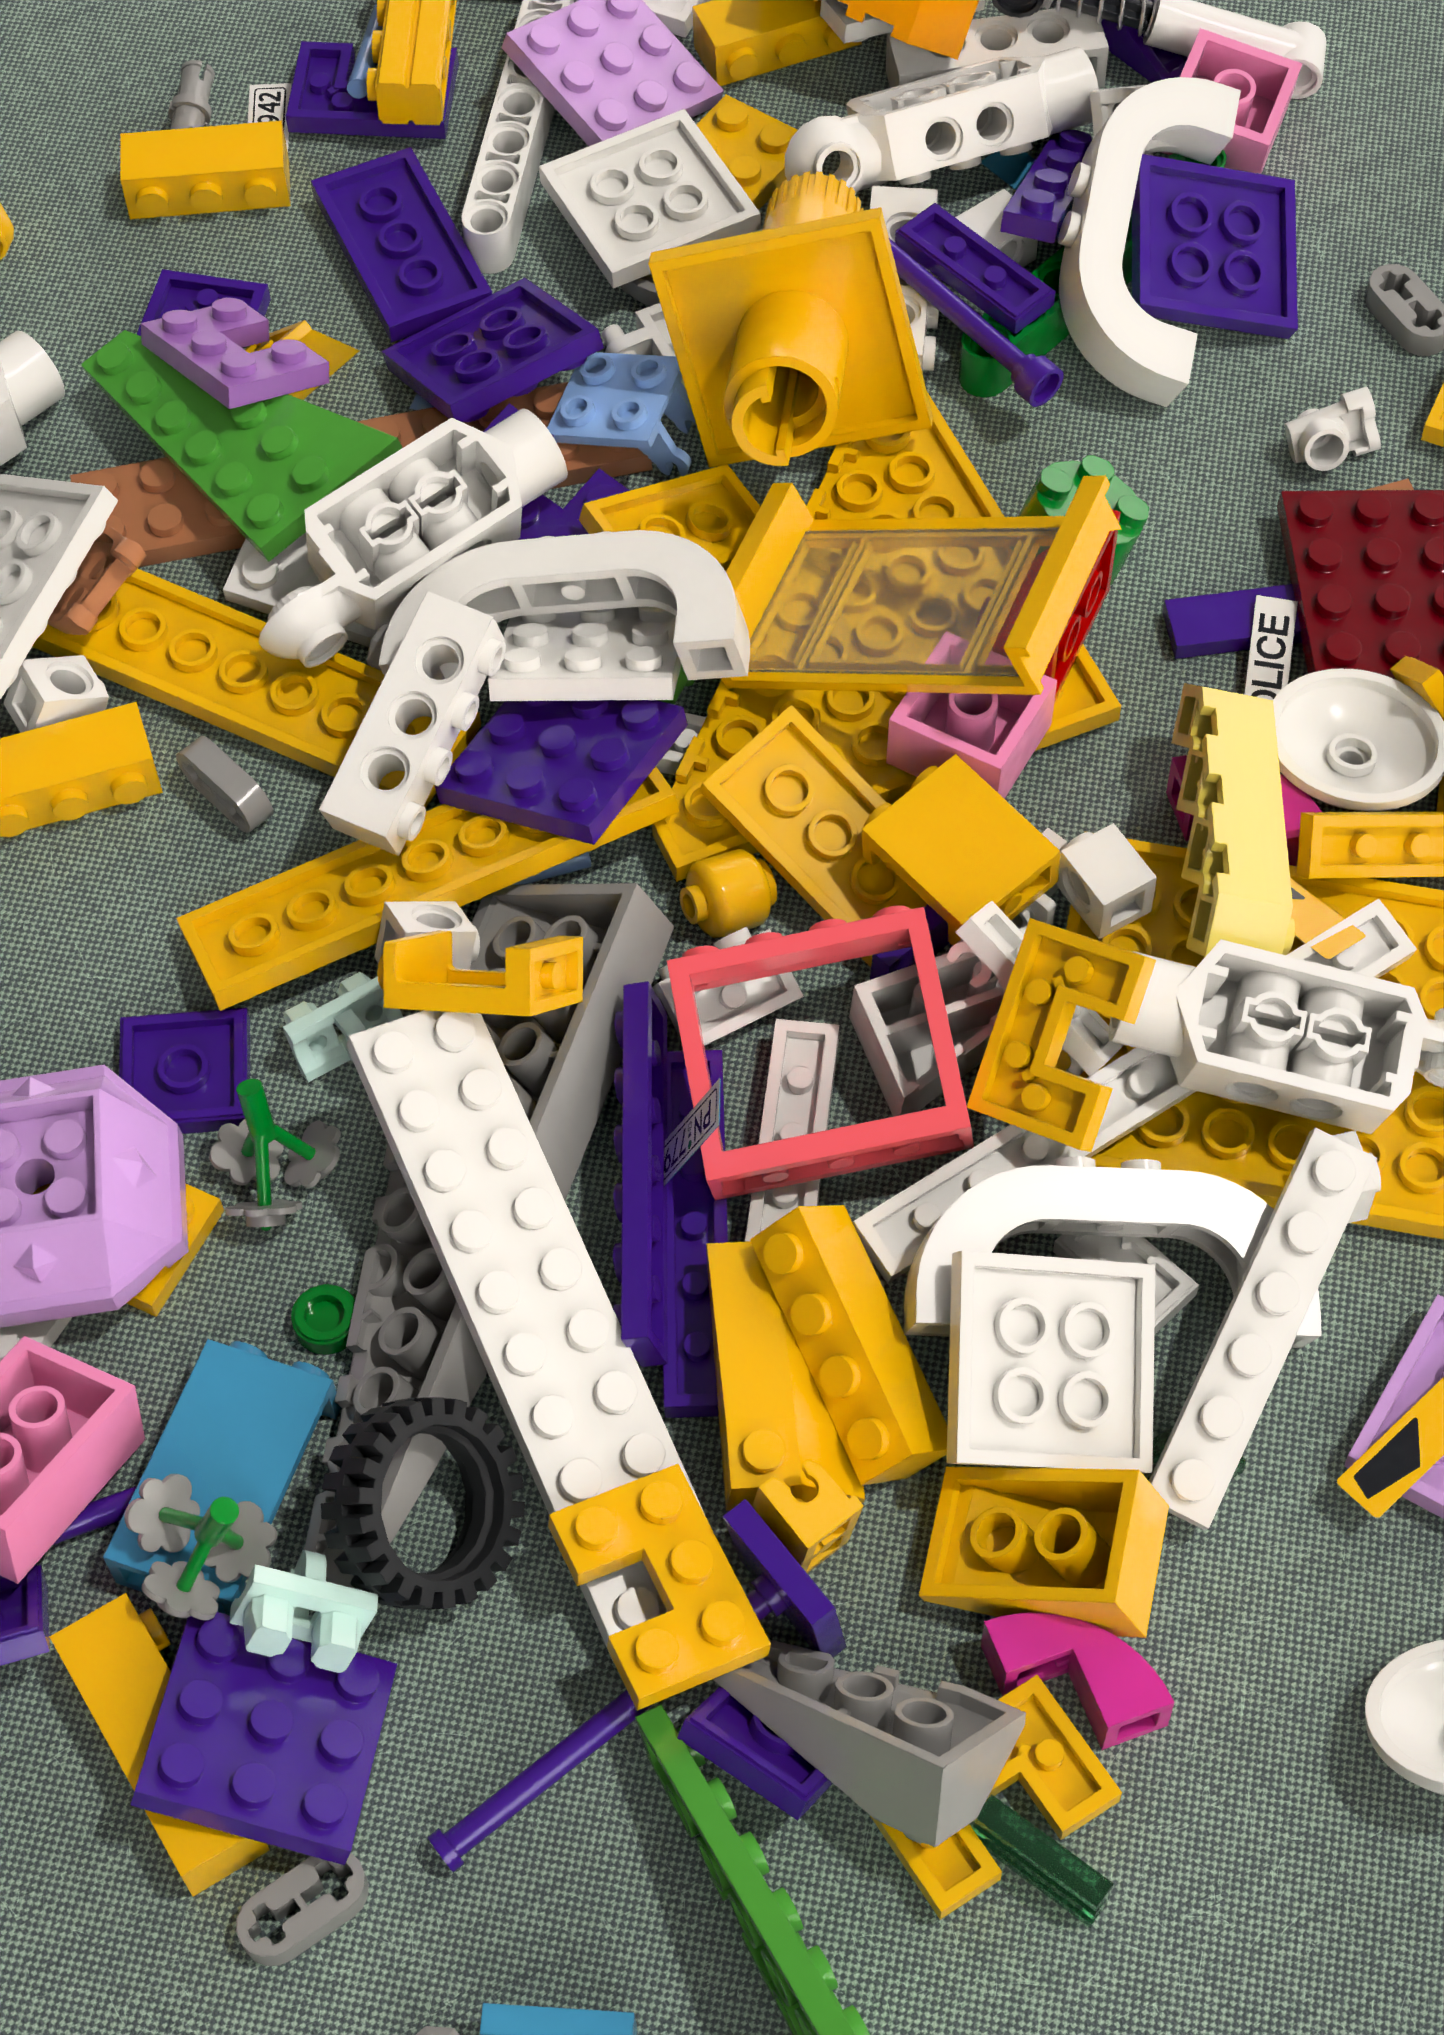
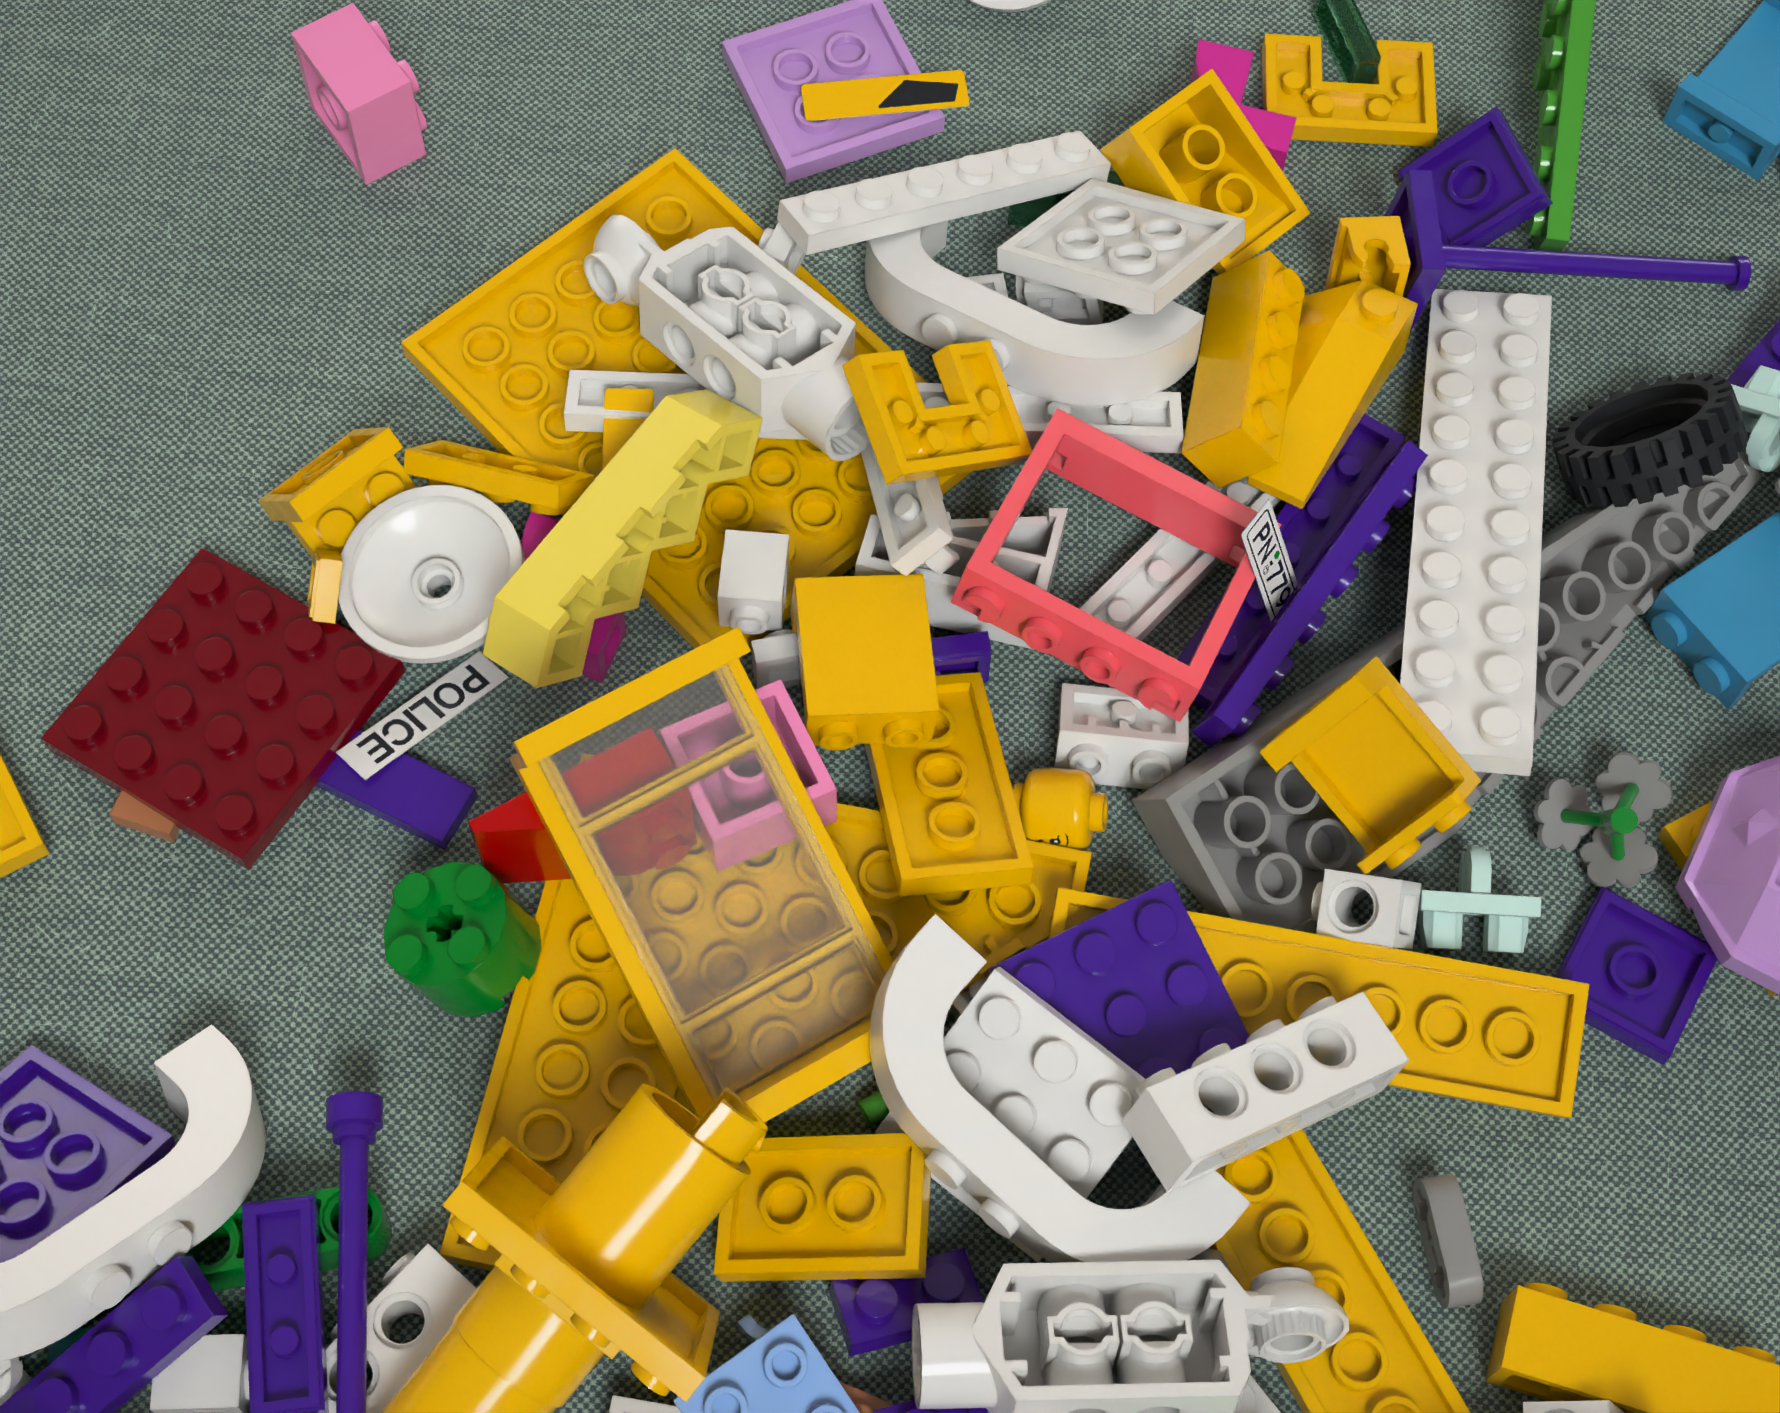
camera: 150 degrees left, 5 degrees up
(323, 1318) = (1623, 684): green tile -> none
(707, 1616) = (1478, 316): yellow plate -> none
(891, 1747) = (1403, 114): light grey wedge -> none
(1330, 433) = (138, 905): white plate -> none

